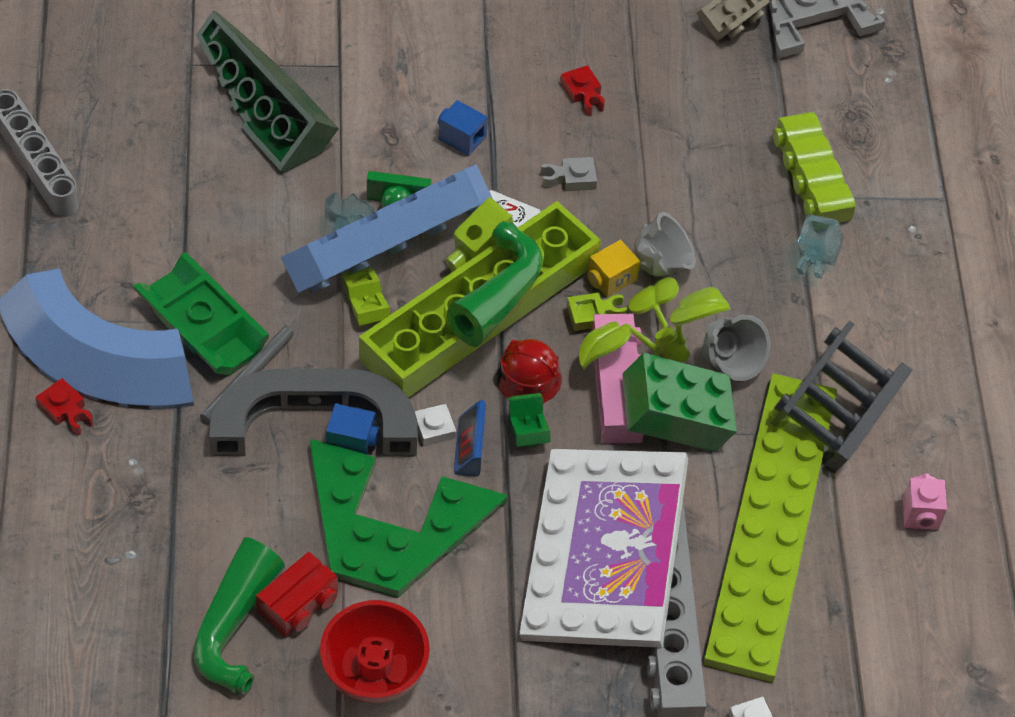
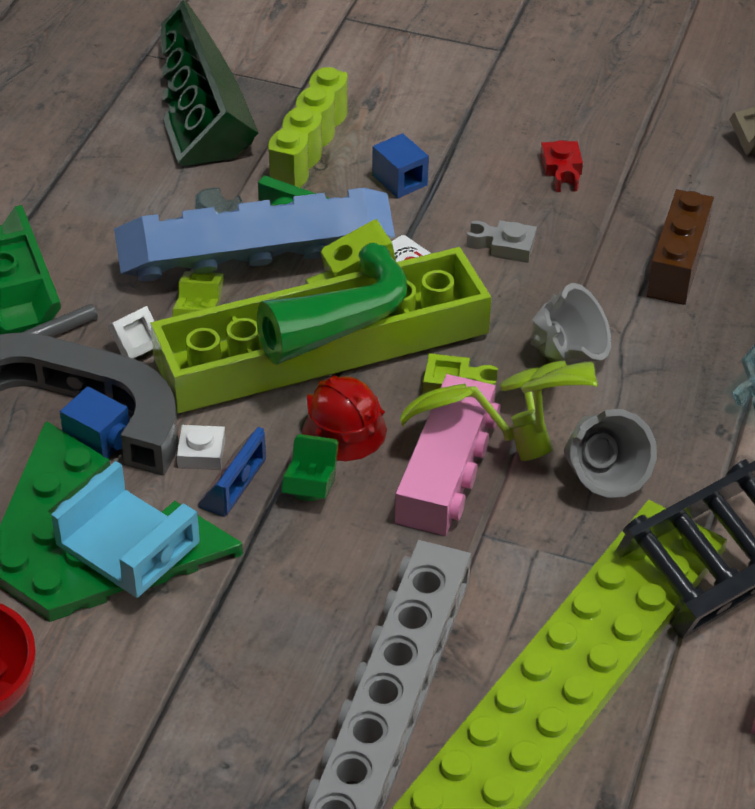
camera: 25 degrees right, 10 degrees down
(338, 343) = (133, 333): none -> white plate
(374, 111) = (309, 126): none -> lime brick
(427, 516) = (123, 533): none -> medium azure panel
(605, 548) = (323, 635): plate -> none
(613, 268) = (501, 338): yellow brick -> none
(679, 402) = (501, 492): green brick -> none
(709, 147) = (680, 246): none -> reddish brown brick

